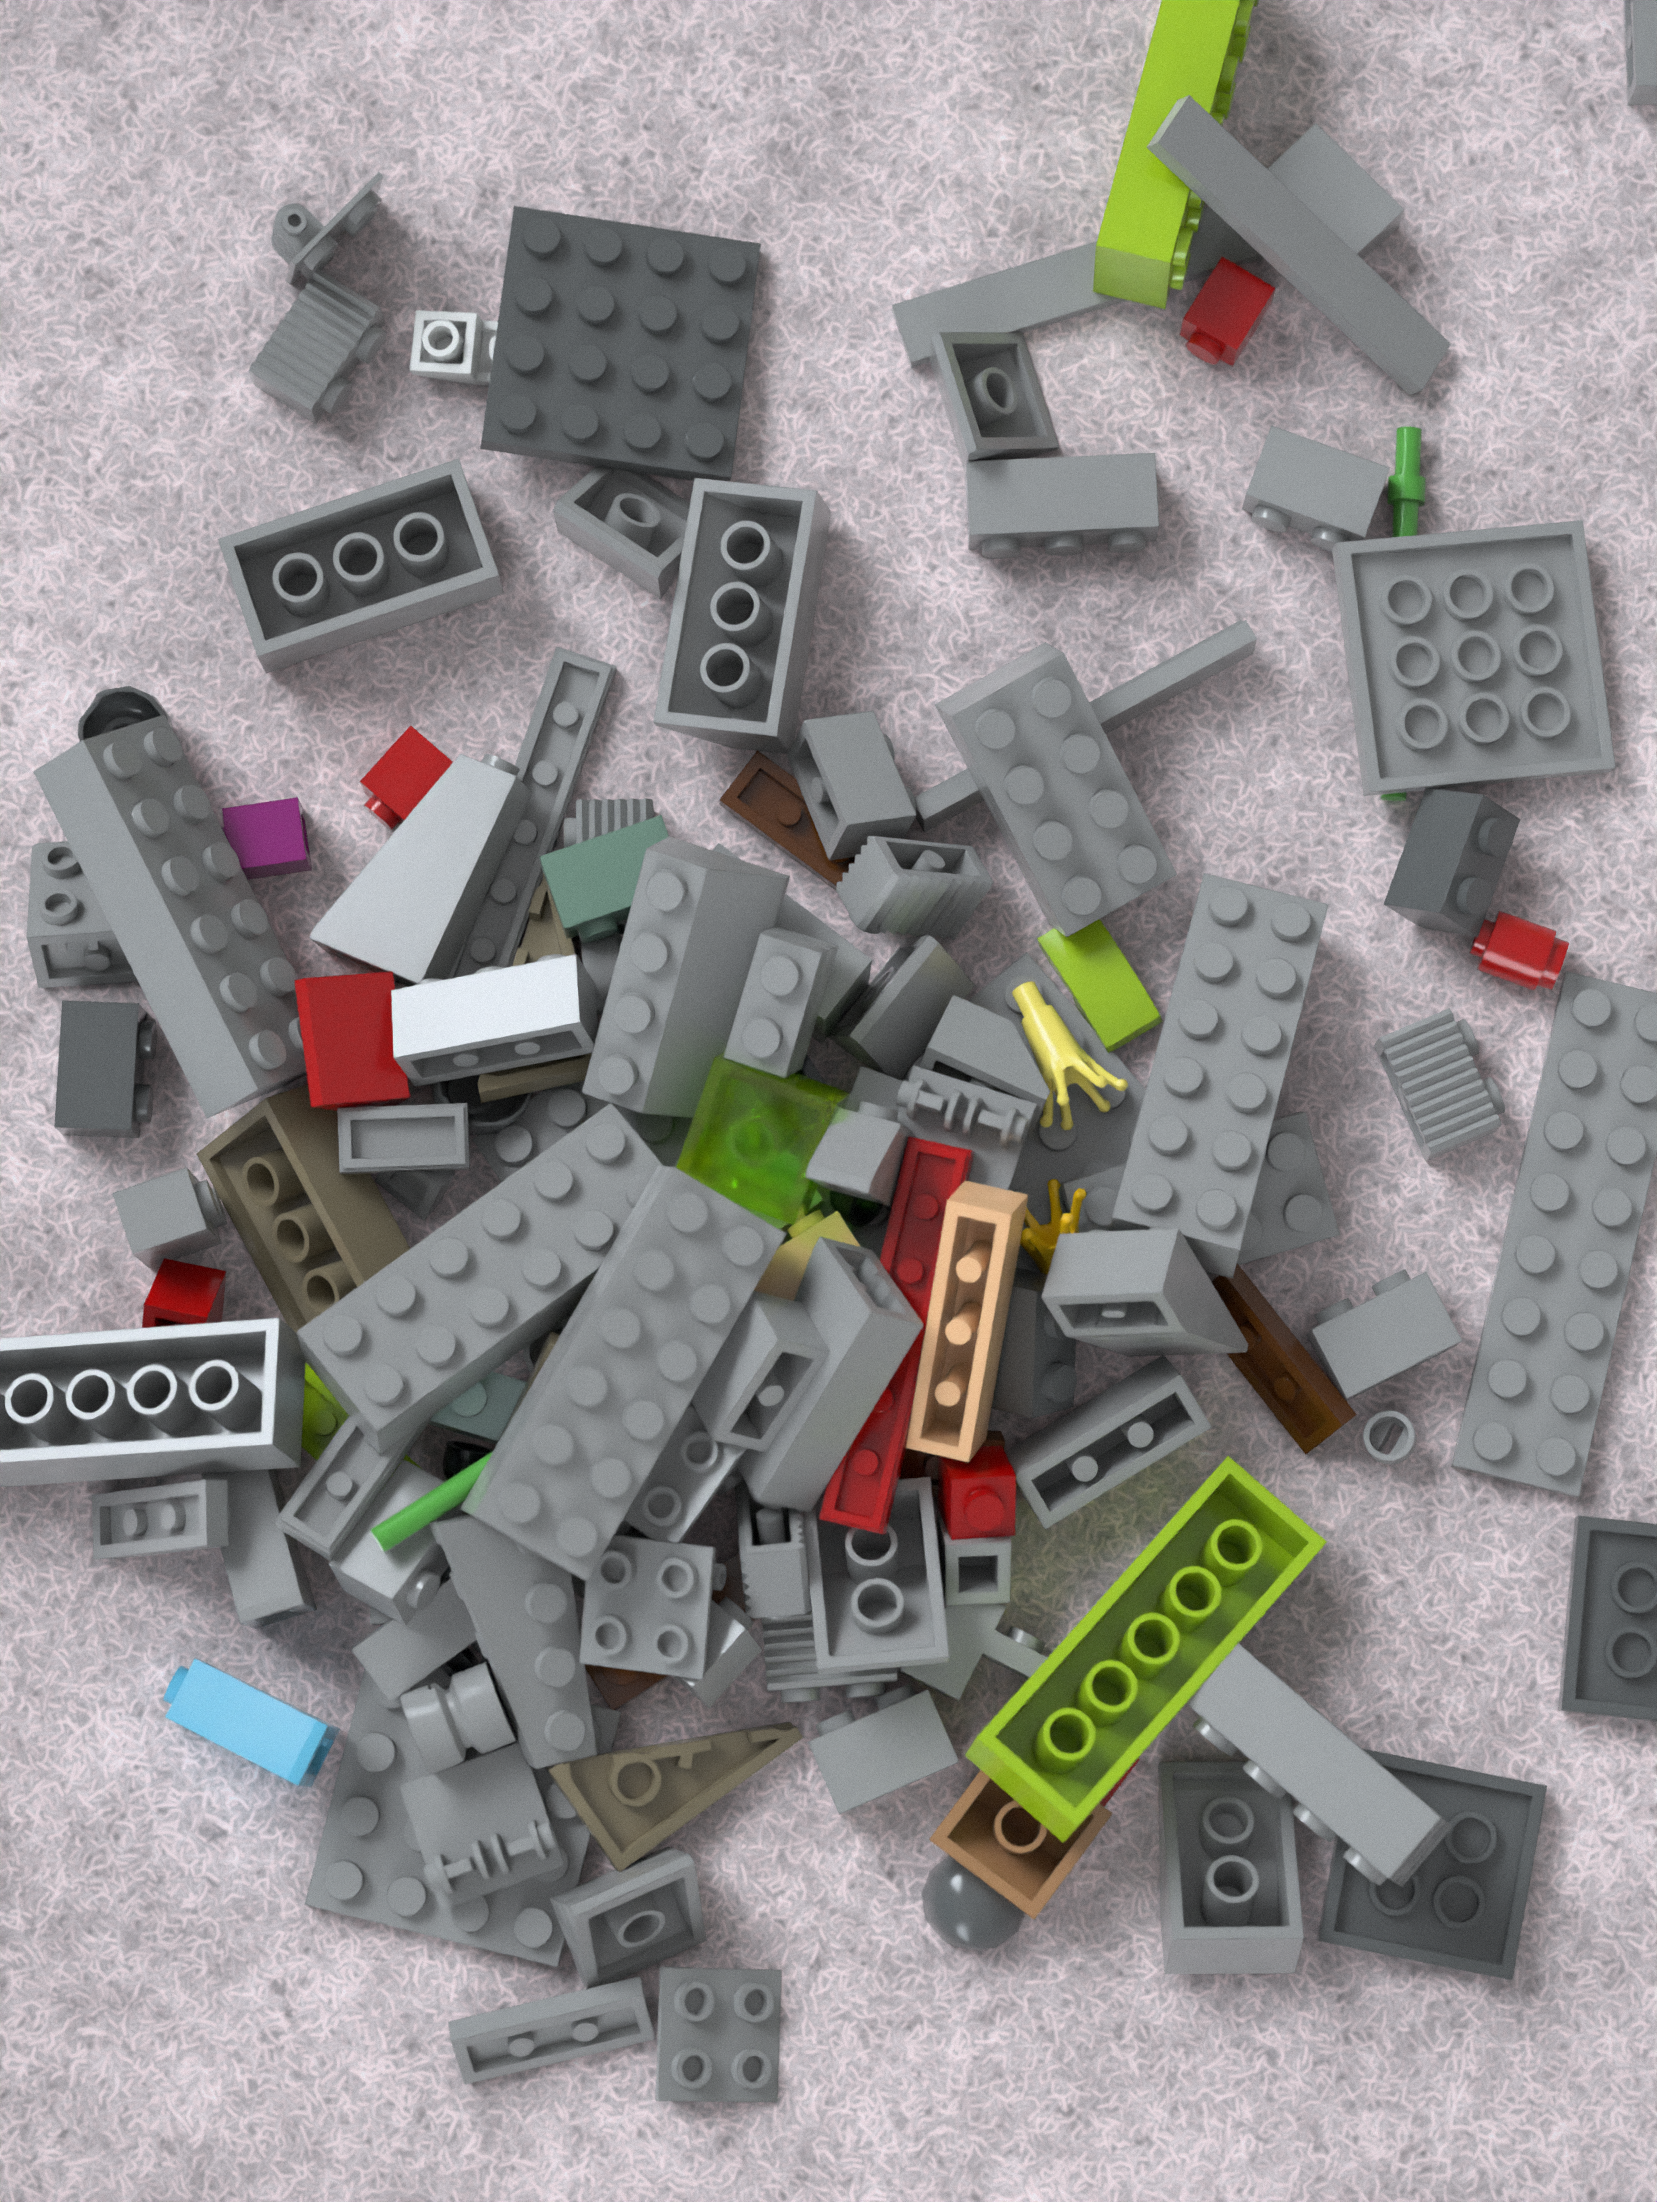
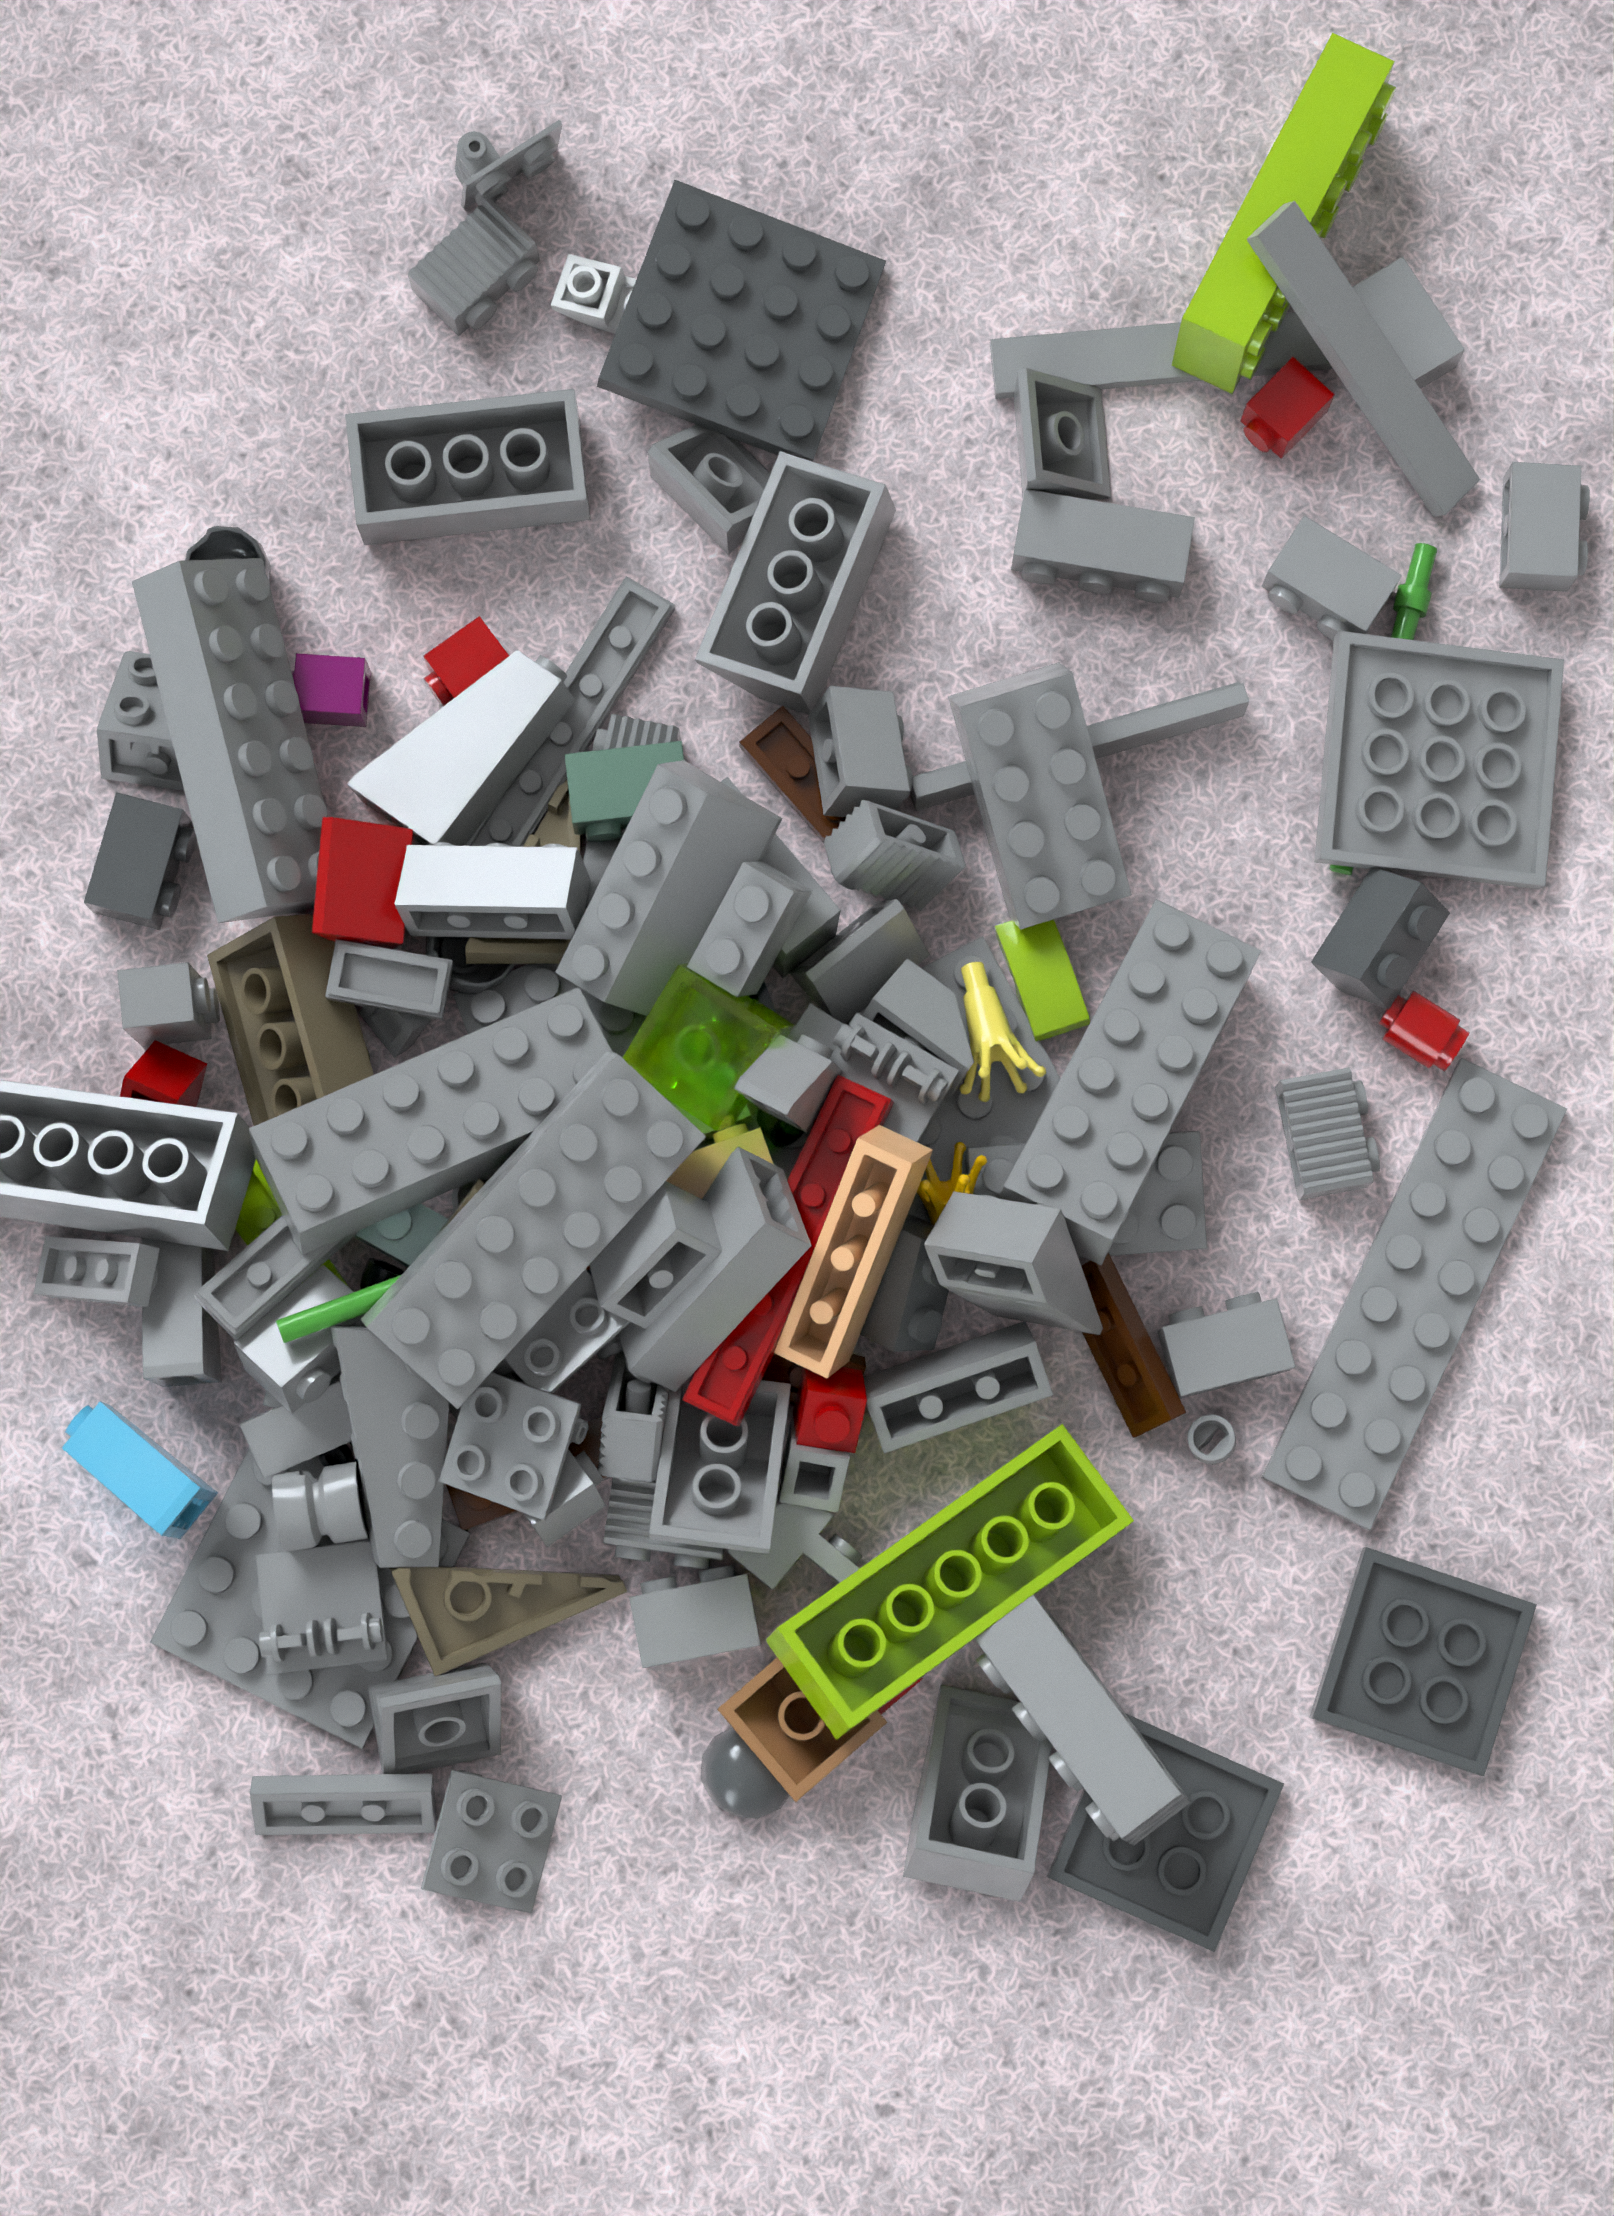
camera: 10 degrees right, 0 degrees up
(1528, 381) = (1542, 526): none -> light grey brick

